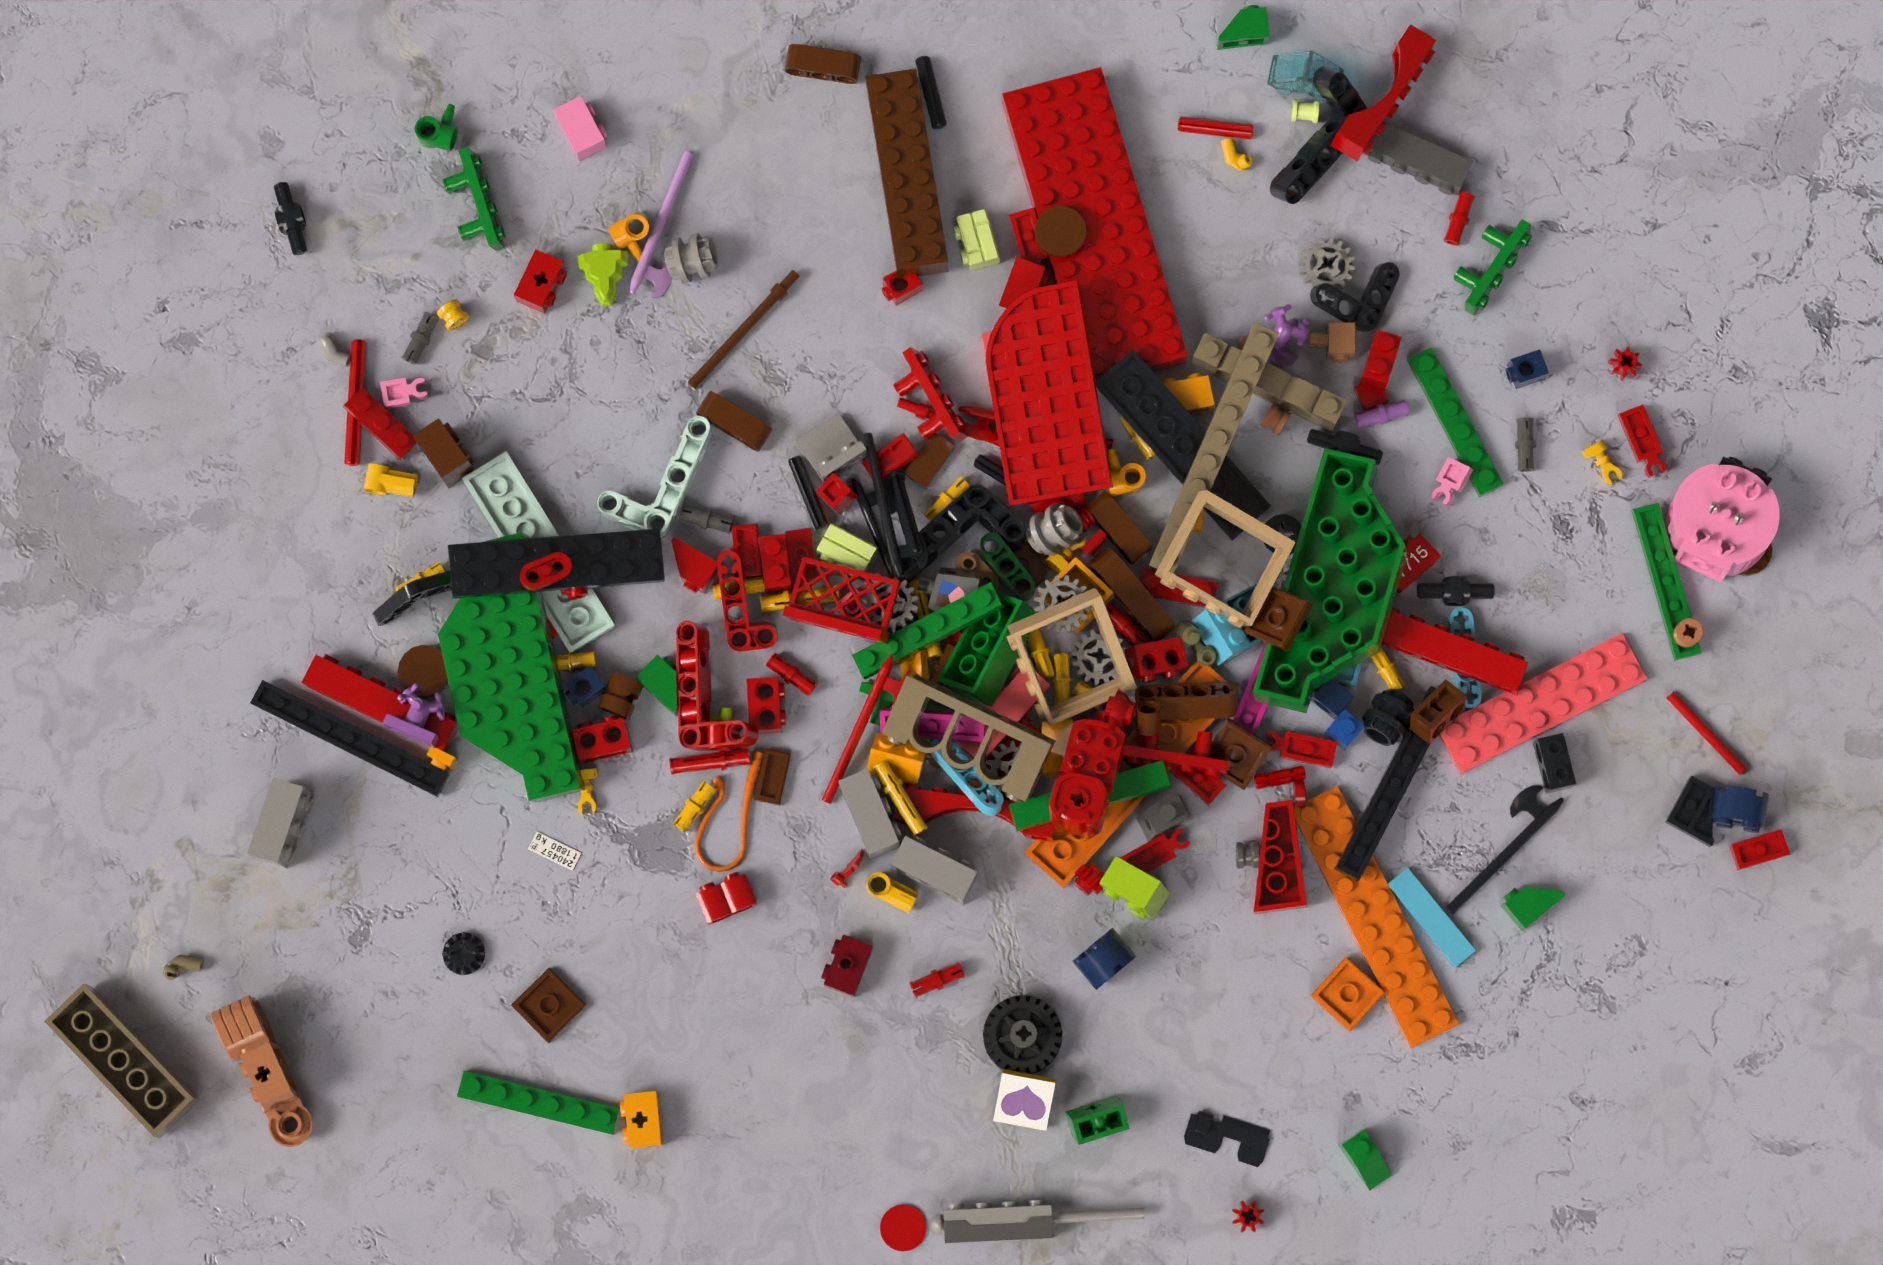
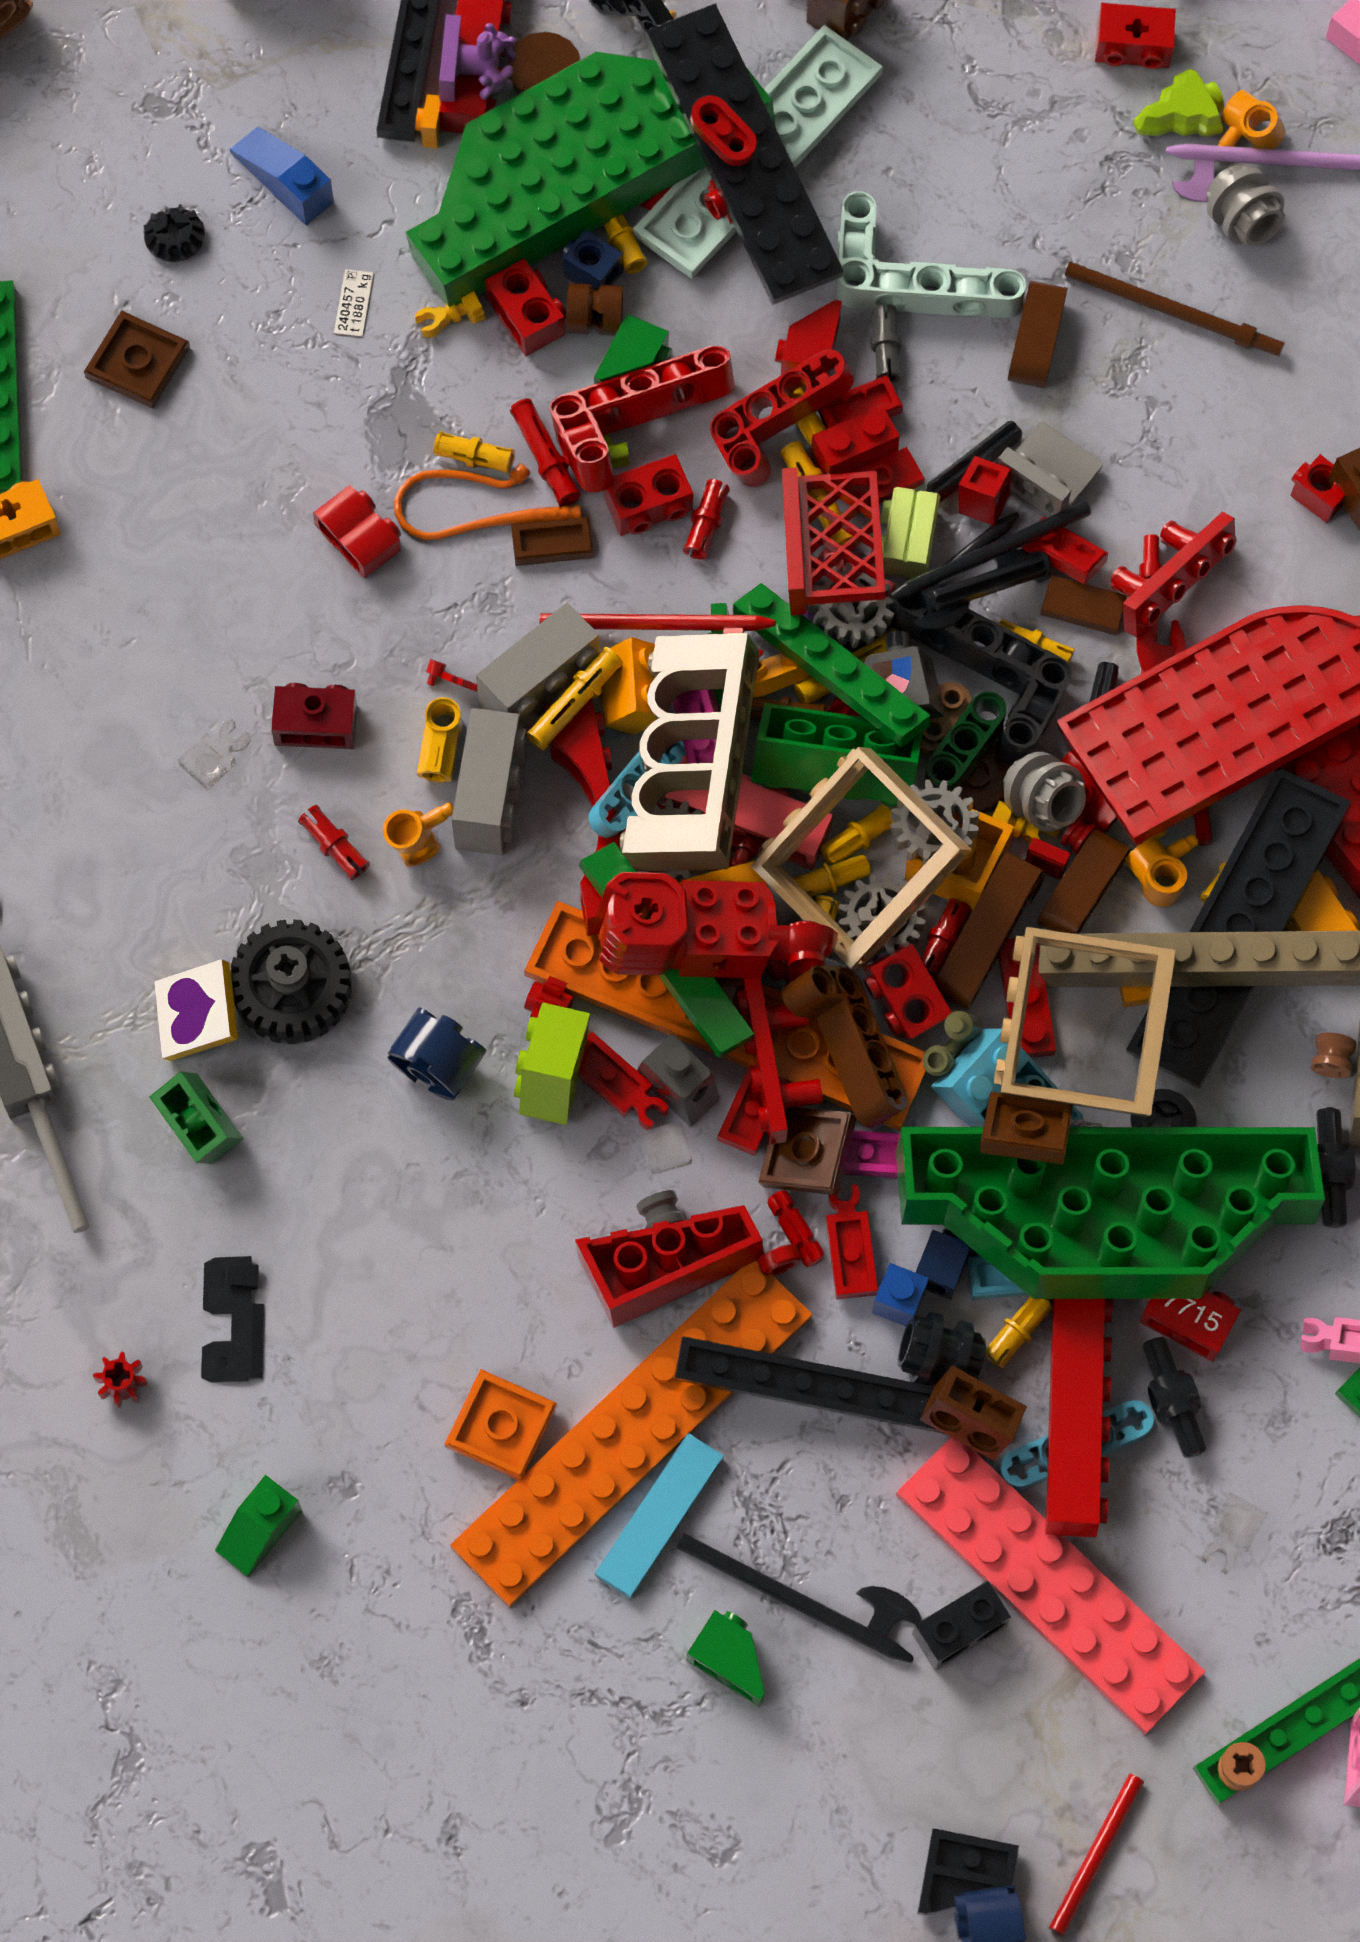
camera: 70 degrees right, 10 degrees down
(443, 867) = (285, 173): none -> blue slope
(952, 926) = (413, 835): none -> light orange piece

